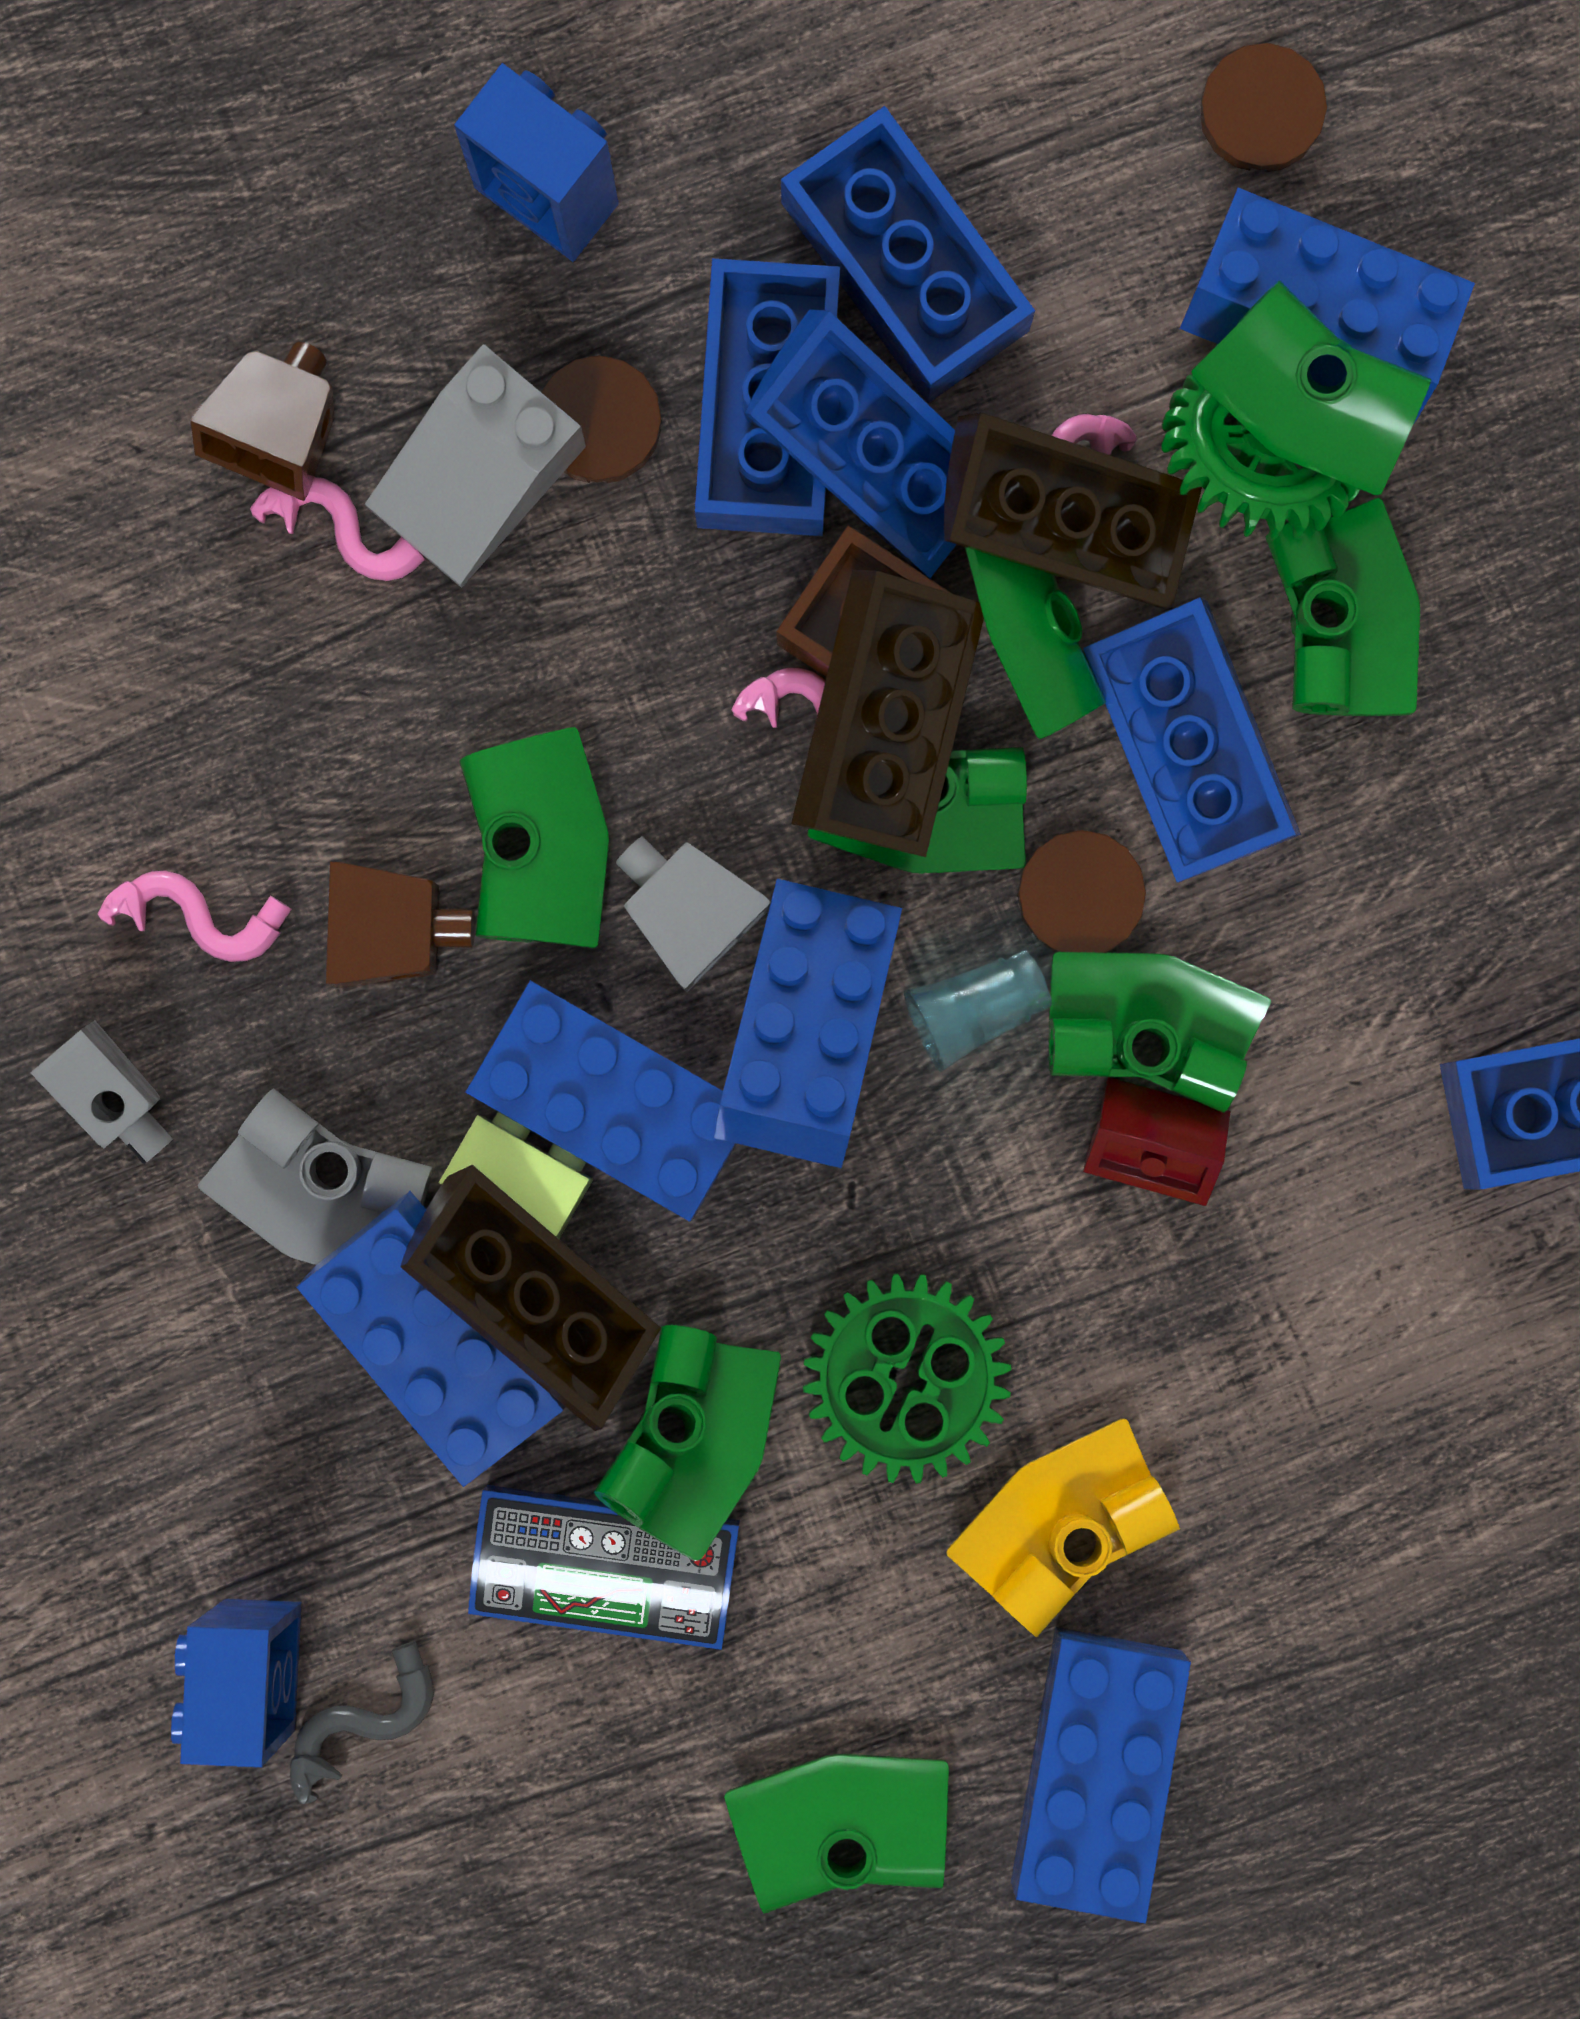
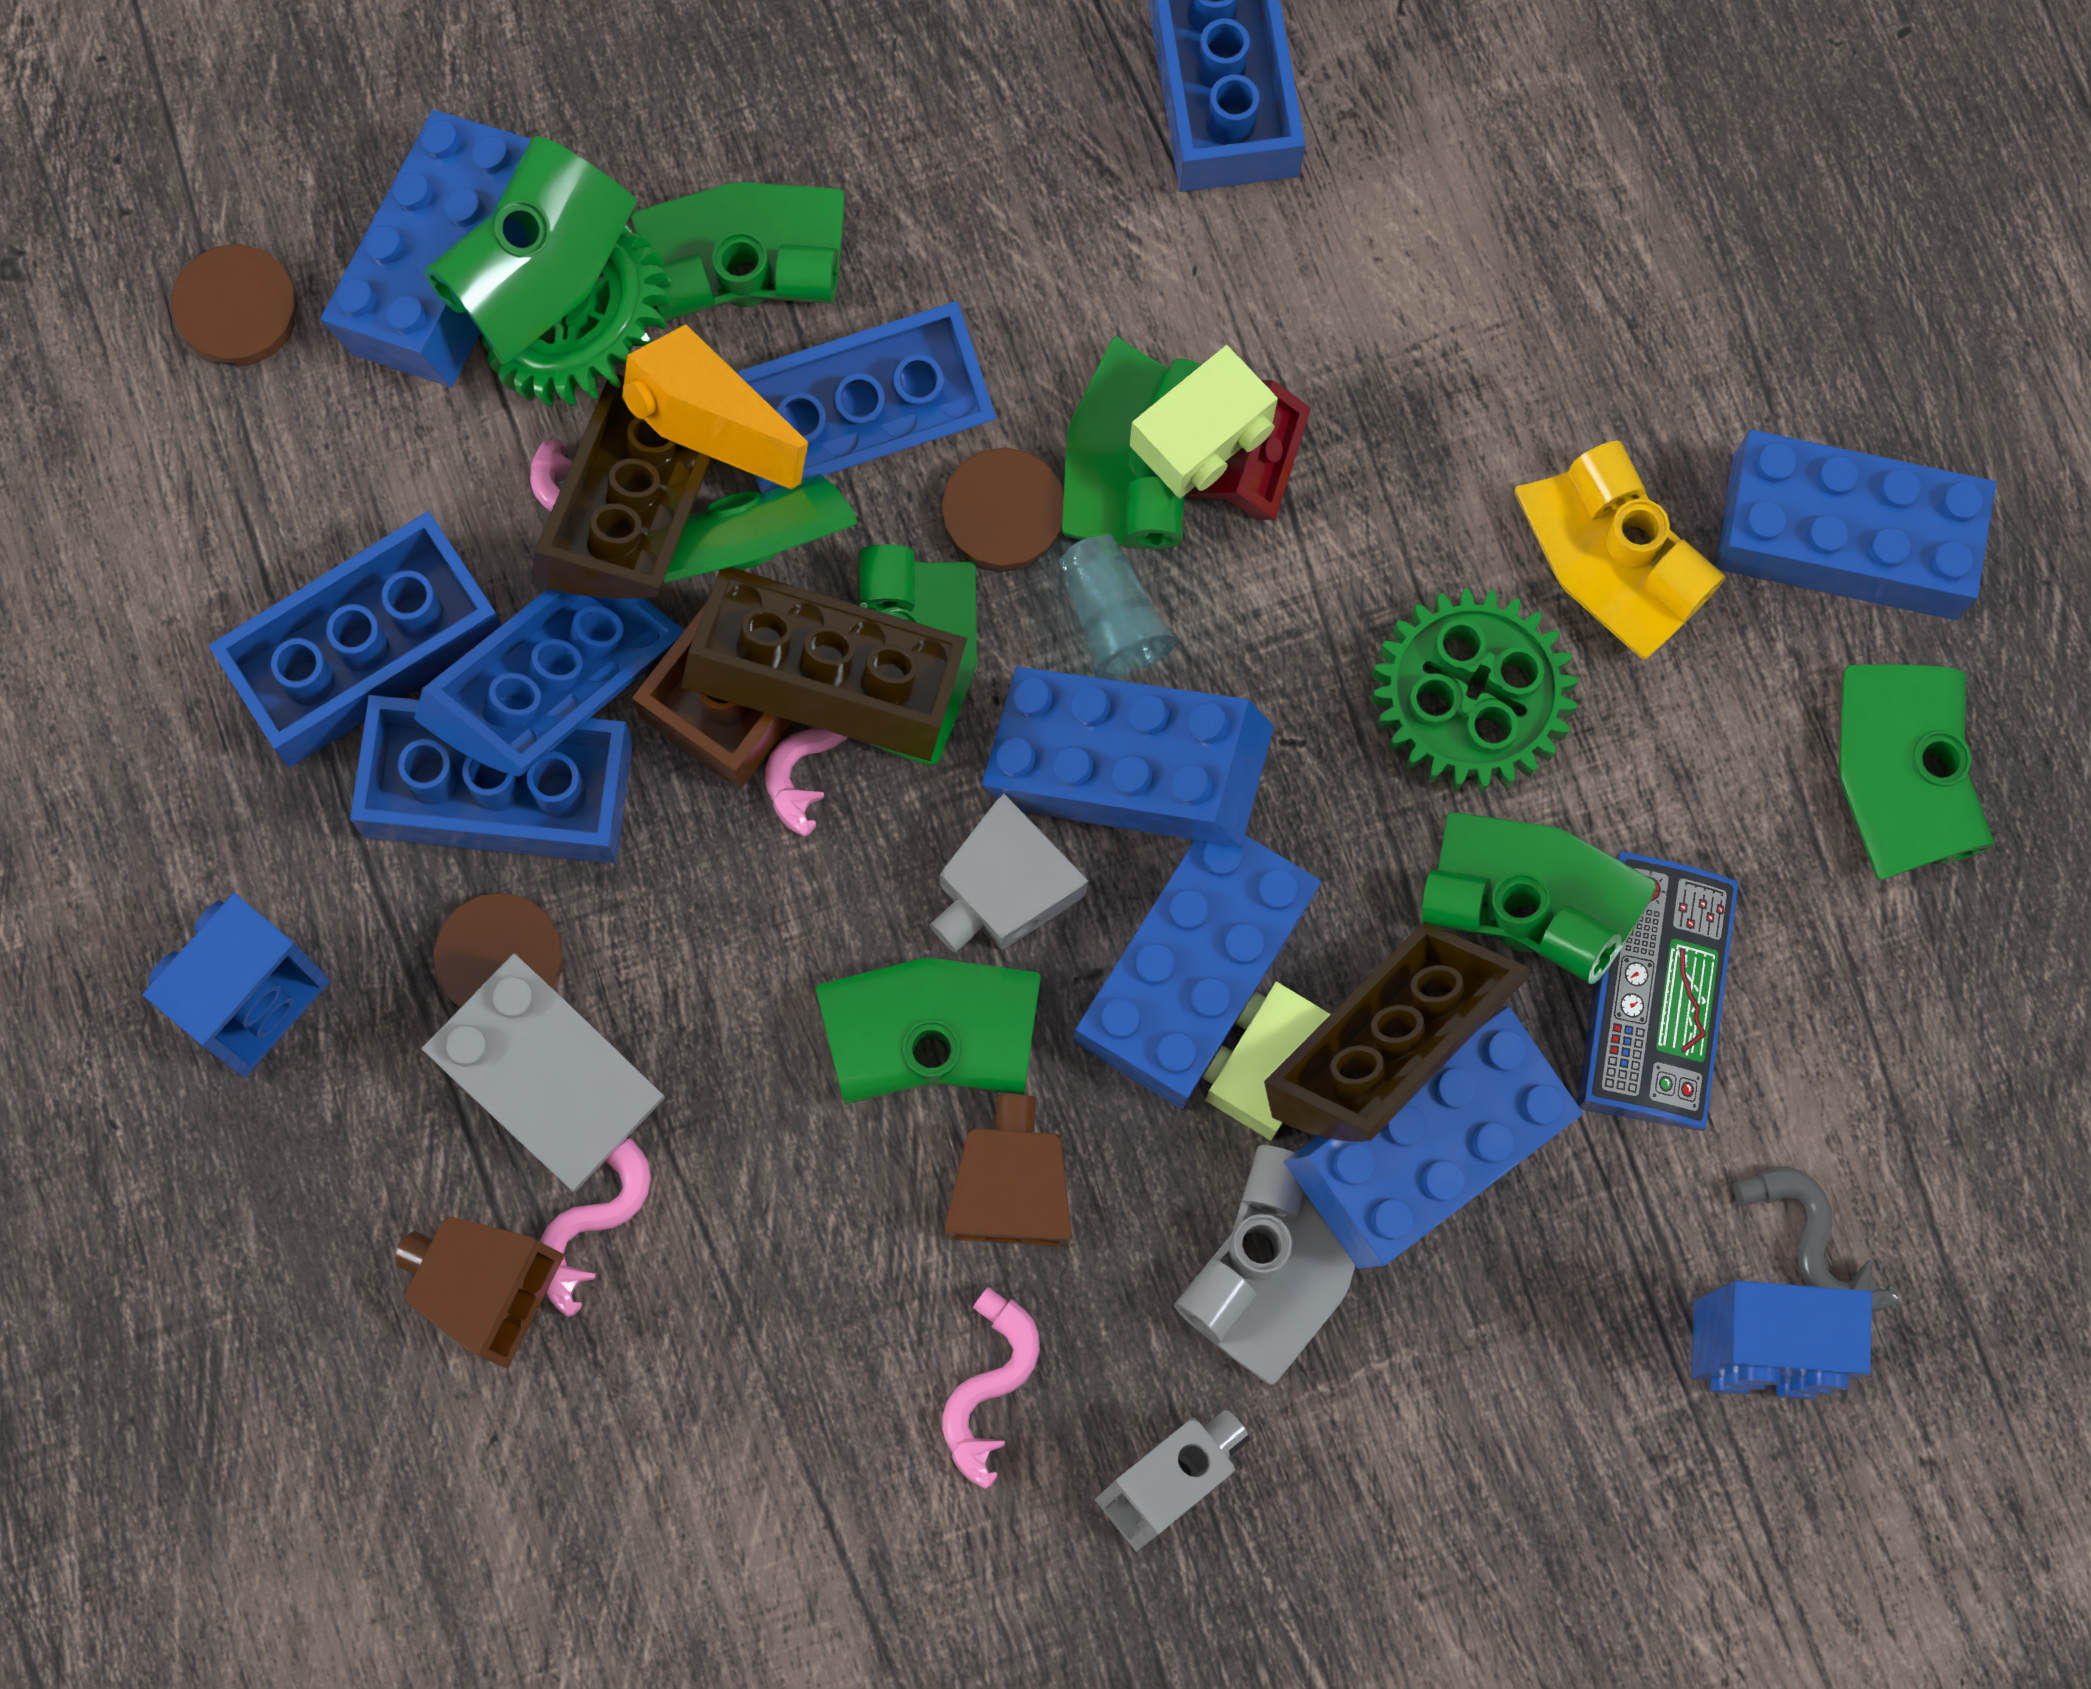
camera: 95 degrees left, 10 degrees down
(1160, 581) = (710, 409): none -> light orange slope
(1164, 1091) = (1204, 423): none -> yellowish green brick

